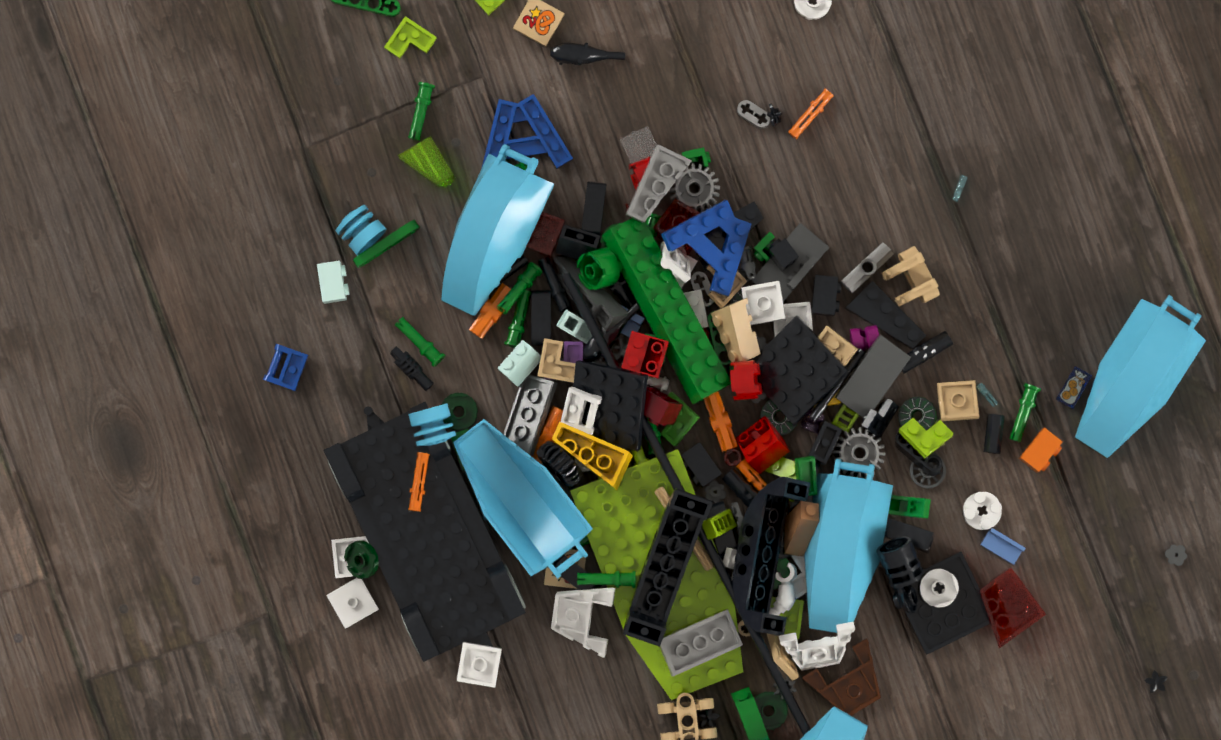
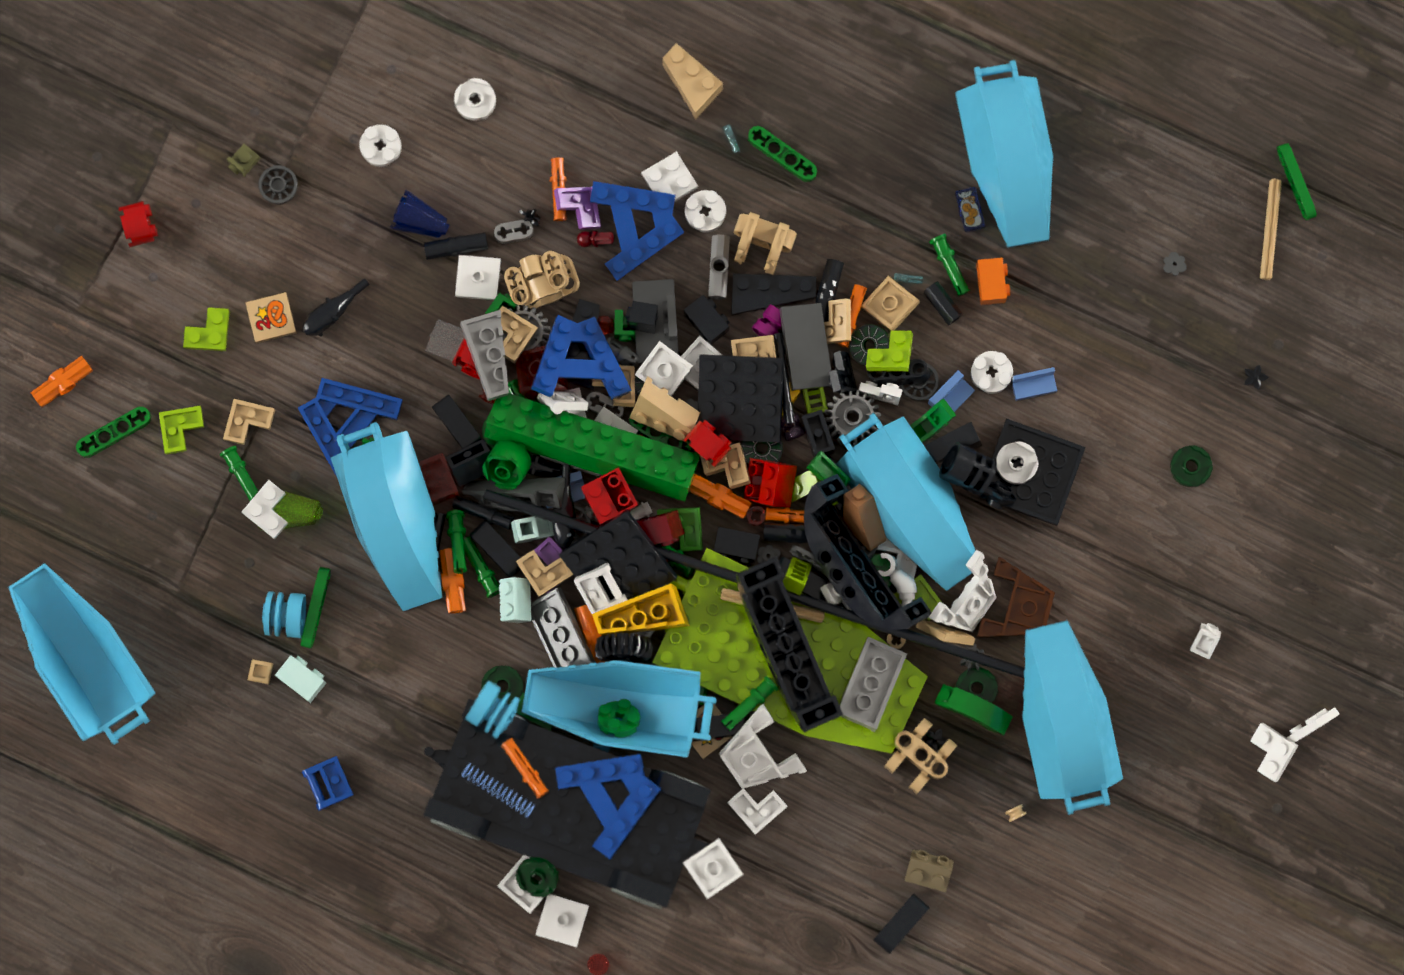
camera: 45 degrees left, 5 degrees down
(201, 132) = (80, 656): none -> medium azure windscreen
(311, 252) = (260, 672): none -> tan tile
(348, 653) = (598, 964): none -> clear red plate
(374, 448) = (500, 787): none -> light blue piece
(409, 146) = (261, 509): none -> white plate
(411, 368) = (430, 687): black hinge -> none
(426, 347) = (428, 660): green pin -> none
(444, 574) = (615, 821): none -> blue plate
(458, 70) = (242, 416): none -> tan plate
(519, 499) = (618, 709): none -> green plate
(543, 656) = (756, 815): none -> white plate
(690, 187) = (518, 333): none -> tan plate
(698, 45) = (418, 217): none -> clear blue cone
(700, 123) = (477, 277): none -> white plate
(705, 87) = (455, 246): none -> black axle
(739, 165) = (541, 279): none -> tan piece
(749, 410) = (733, 464): none -> tan plate
(754, 235) = (606, 324): none -> clear red plate
(797, 164) = (597, 238): none -> dark red axle
(818, 138) = (579, 199): none -> medium lavender plate
(821, 202) = (635, 250): none -> blue plate
(891, 177) = (670, 177): none -> white plate
(891, 210) = (700, 221): none -> white plate
(898, 460) = (887, 393): none -> white plate
(908, 383) = (839, 324): none -> tan plate
(923, 384) = (856, 302): none -> orange pin
(942, 500) = (954, 392): none -> medium blue panel
(970, 123) = (692, 79): none -> tan wedge
(986, 230) = (784, 151): none -> green beam
(1009, 606) = (1085, 424): clear red wedge -> none
(1043, 700) = (1179, 469): none -> dark green tile

